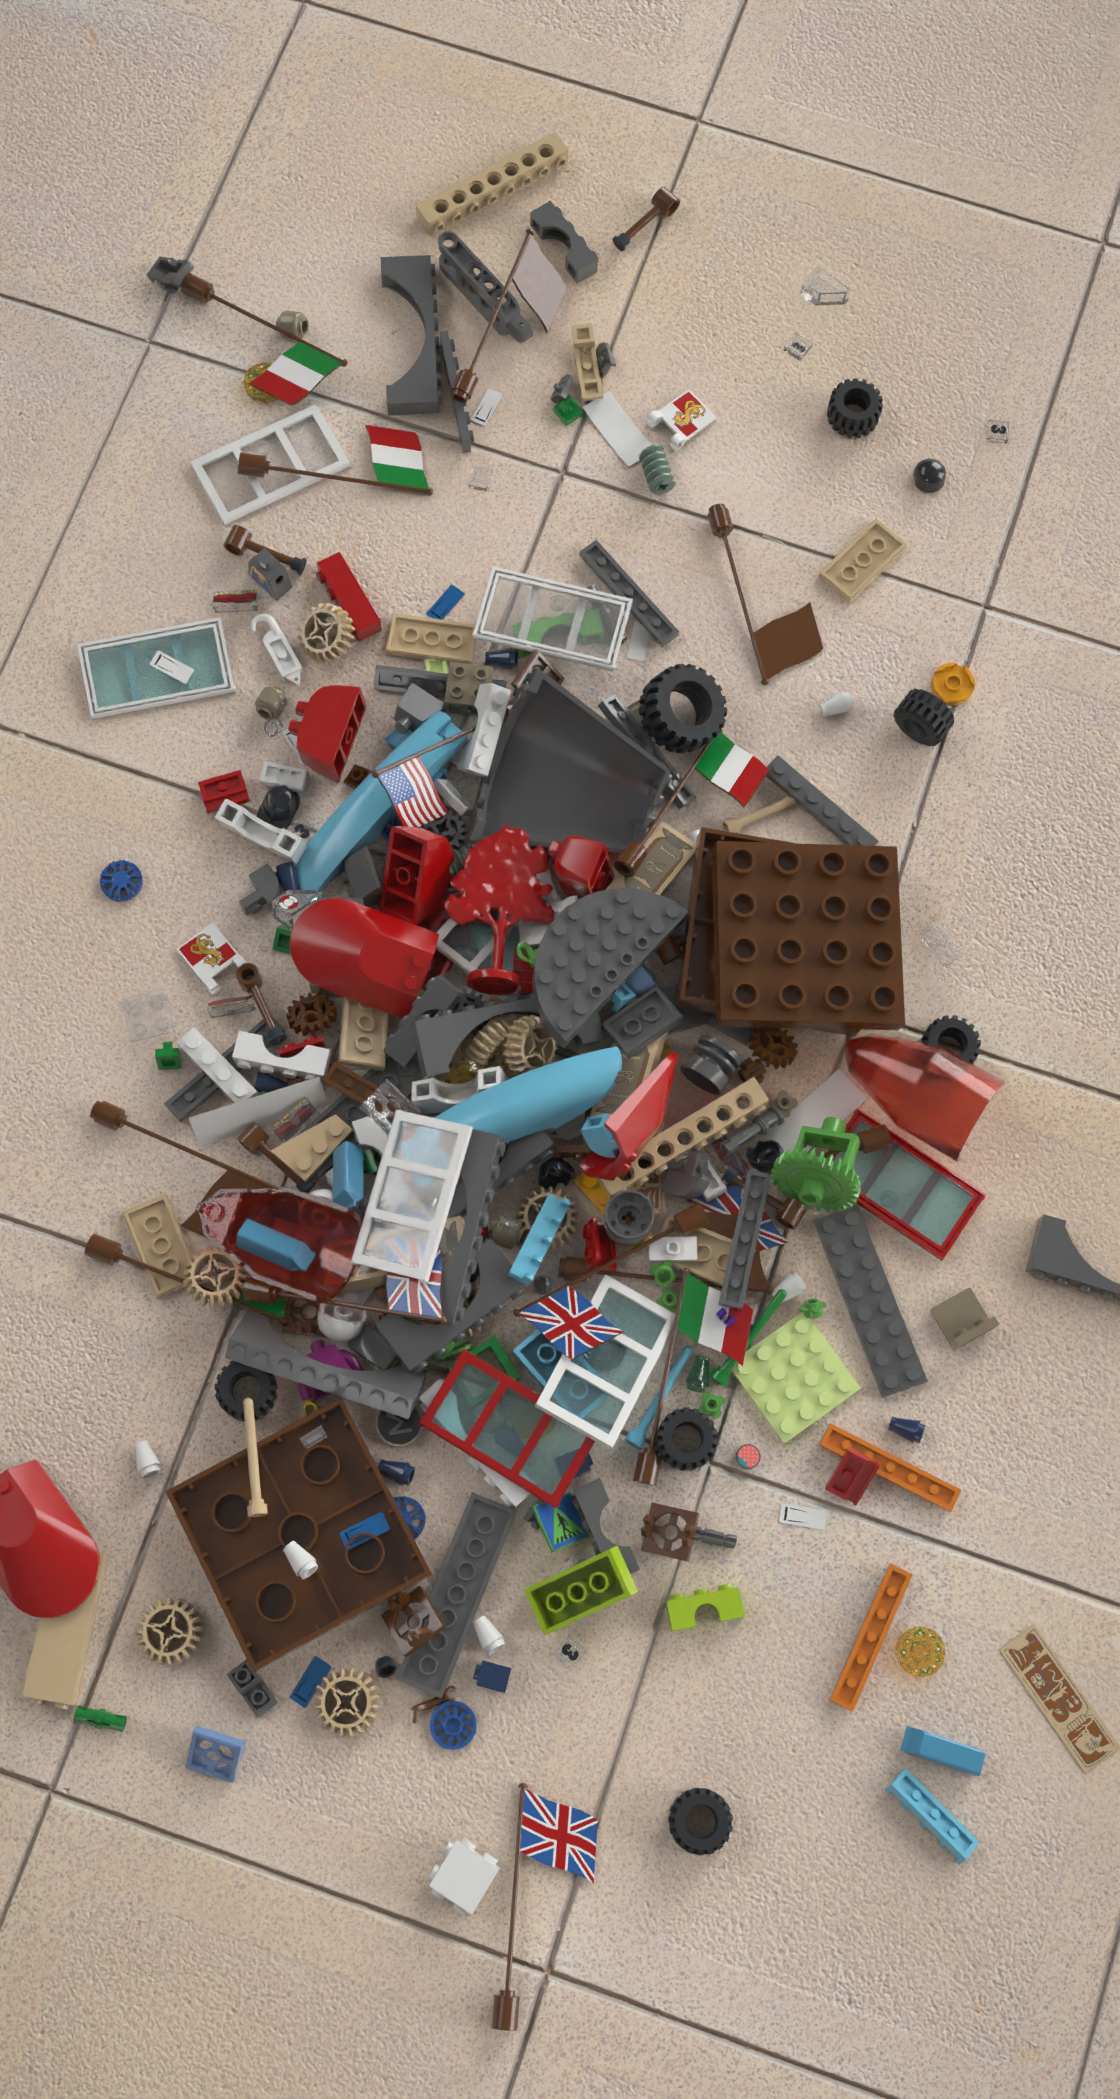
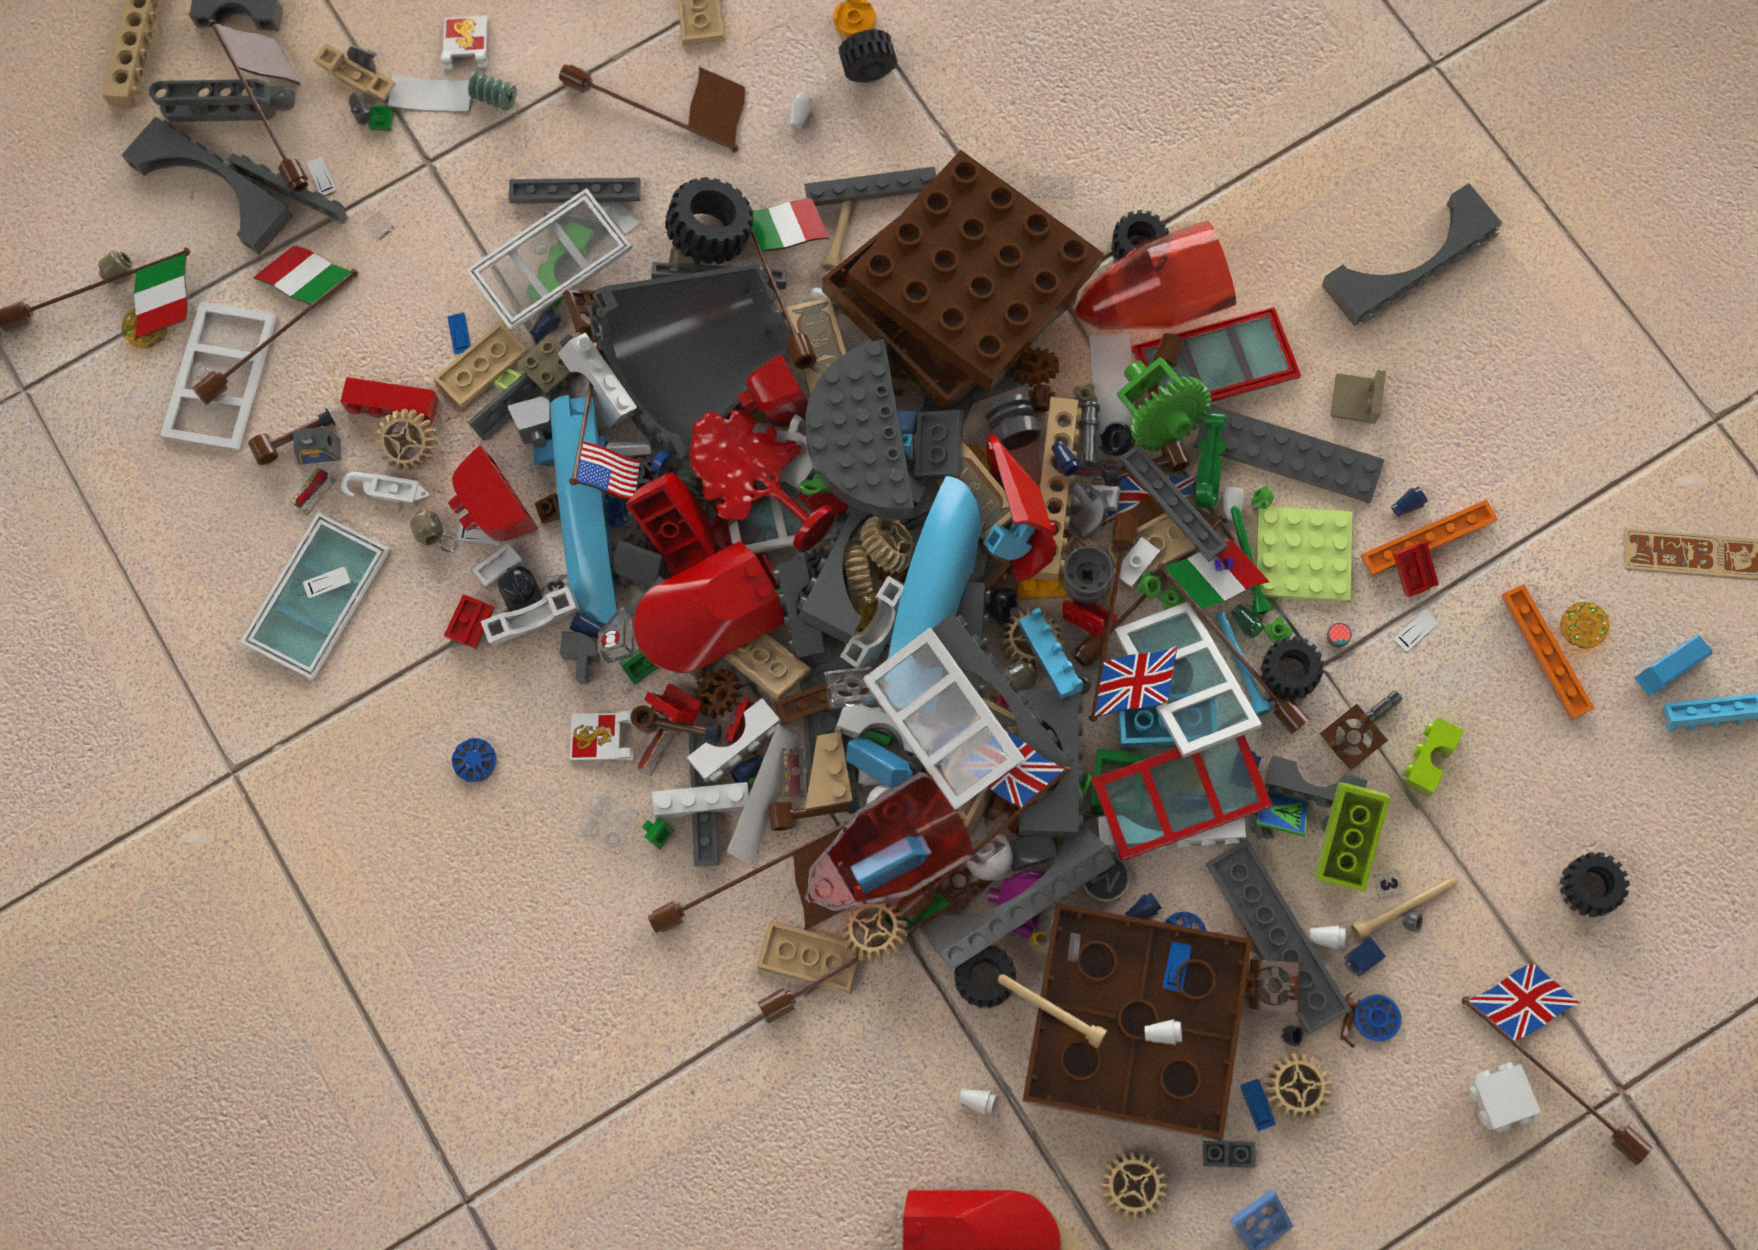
camera: 40 degrees left, 0 degrees up
(275, 990) = (675, 704): none -> red bracket
(458, 827) = (661, 461): none -> blue tile
(518, 1660) = (1364, 928): none -> tan piece
(554, 1695) = (1413, 921): none -> dark grey hinge
(708, 1128) = (1066, 460): none -> dark blue cone
(807, 1244) = (1210, 461): none -> green piece

